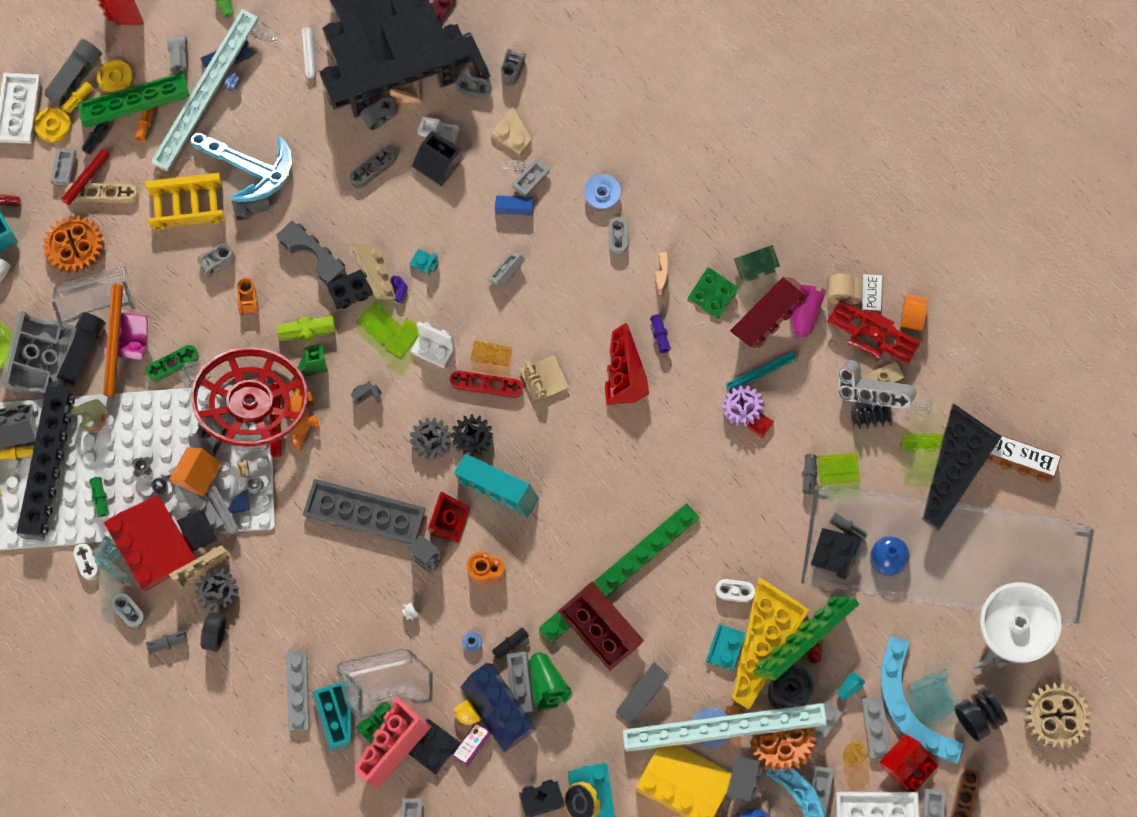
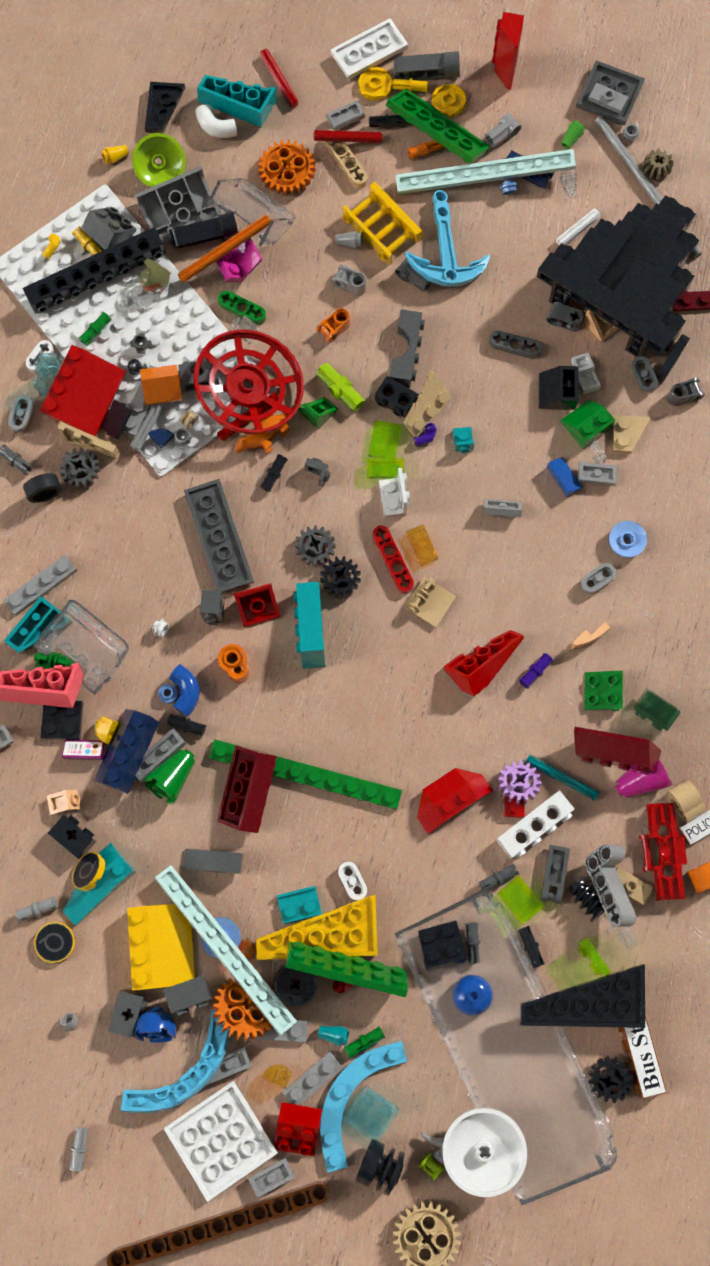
camera: 55 degrees right, 5 degrees up
(180, 236) = (351, 239): none -> light grey cone
(341, 431) = (273, 473): none -> black pin
(482, 156) = (588, 423): none -> green slope
(483, 621) = (189, 689): none -> blue cylinder
(505, 789) = (63, 801): none -> light nougat bracket
(718, 469) = (450, 797): none -> red wedge
(784, 446) = (508, 839): none -> white brick
(835, 428) = (555, 873): none -> dark grey plate
(872, 665) = (364, 1042): none -> green pin
(881, 484) = (531, 946): none -> black pin
(1004, 677) = (430, 1166): none -> lime bush
(1018, 497) = (620, 1081): none -> black gear

